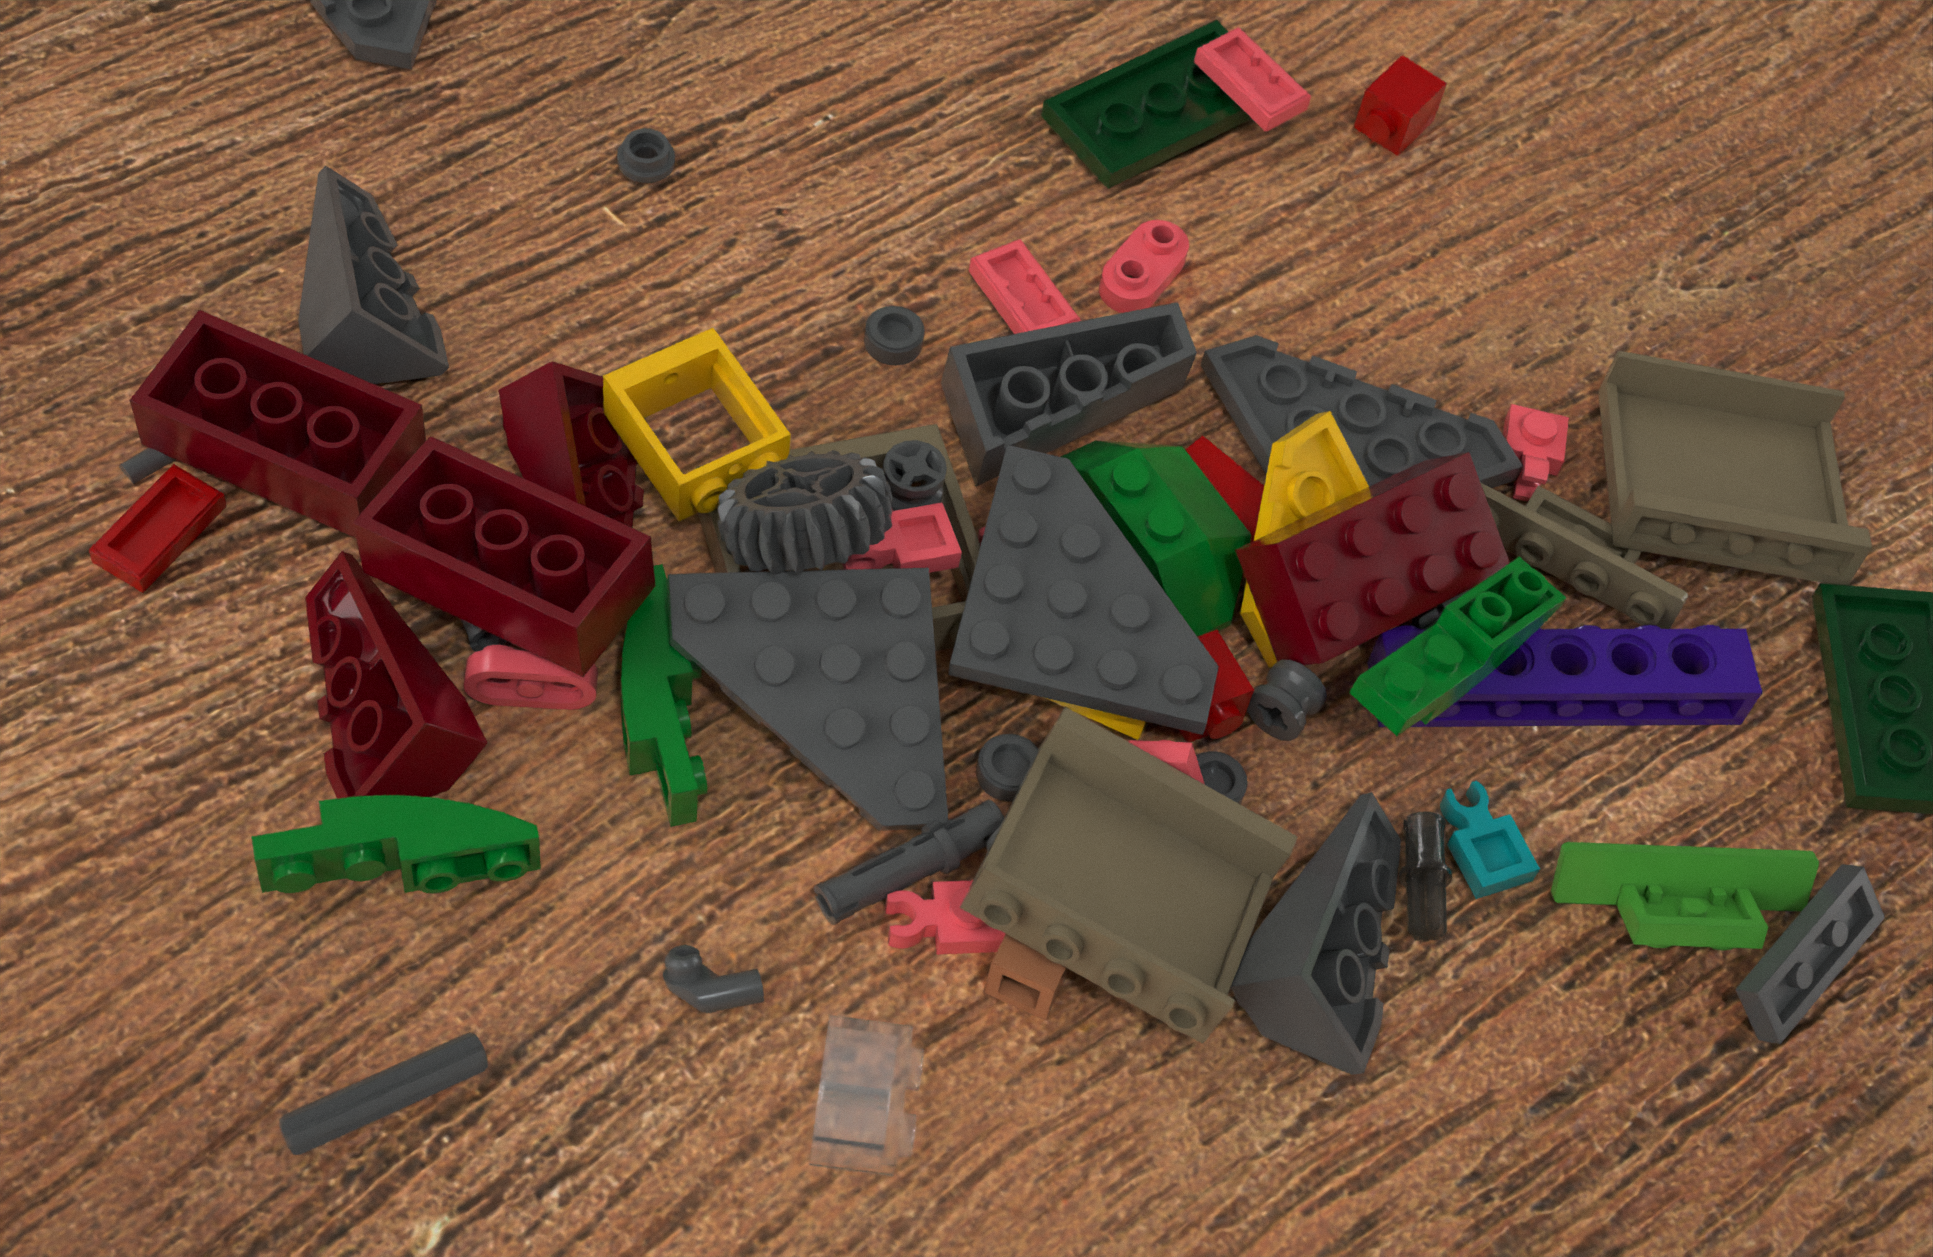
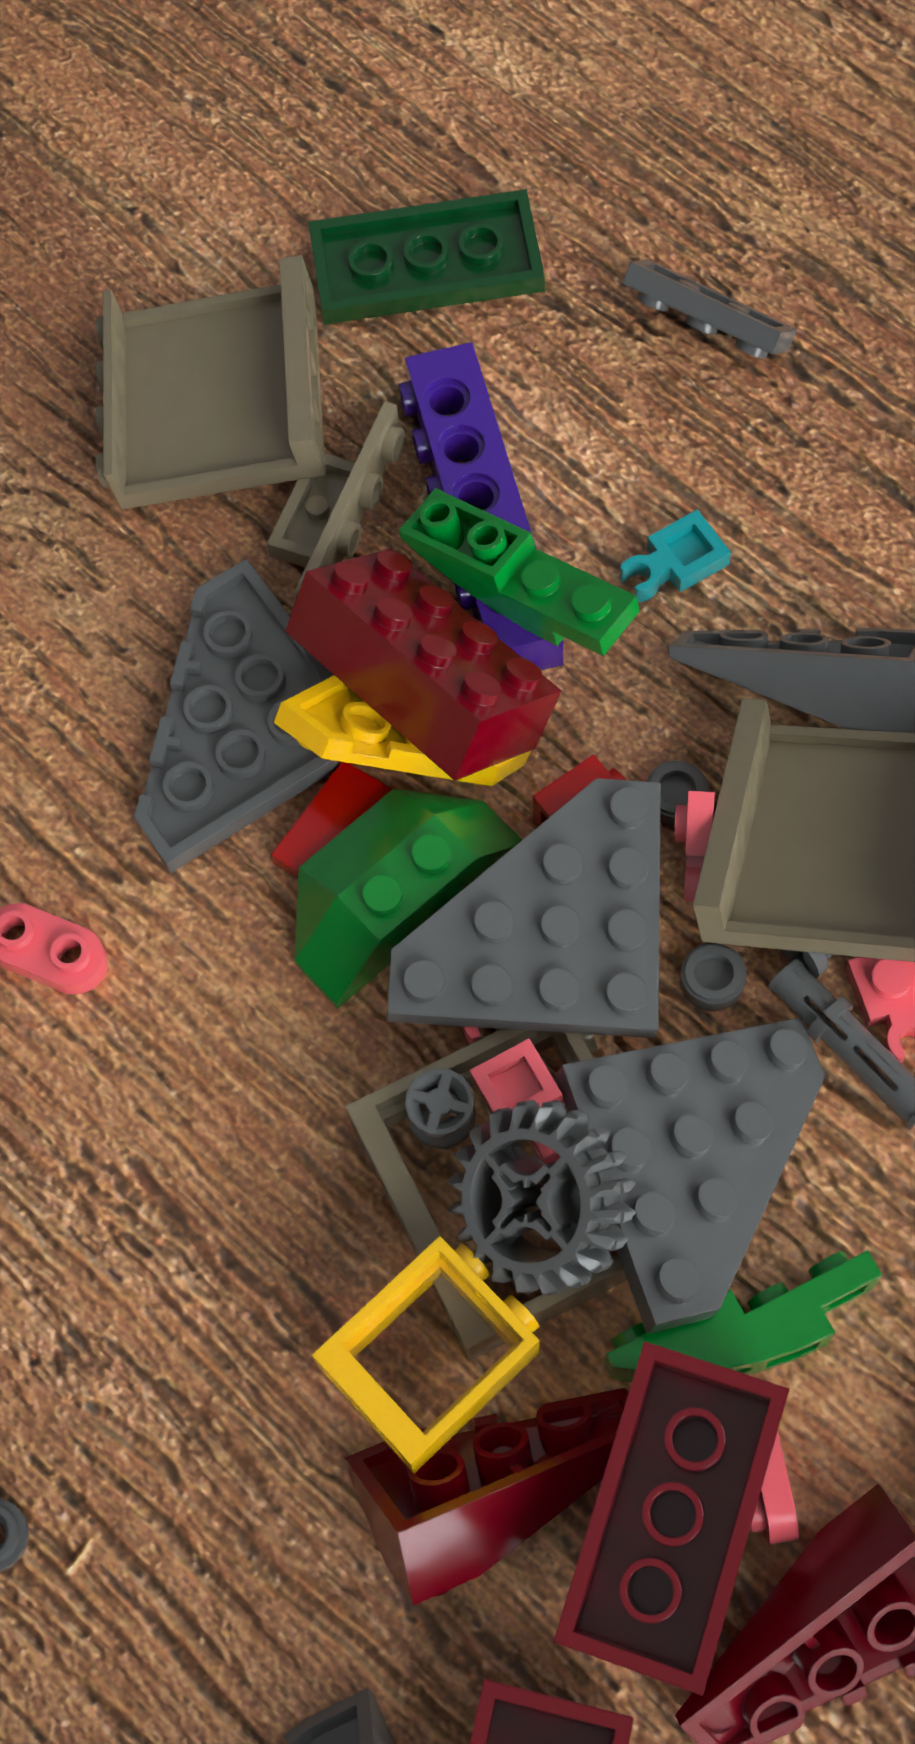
camera: 85 degrees left, 10 degrees up
(894, 335) = (198, 1192): dark grey tile -> none
(1020, 289) = (120, 1061): coral plate -> none
(1062, 381) = (261, 1007): dark grey wedge -> none
(1286, 700) = (574, 733): dark grey wheel -> none
(1425, 875) = (723, 603): clear smoke axle -> none
(1538, 443) = (203, 553): coral plate -> none
(1686, 891) = (689, 398): bright green bracket -> none

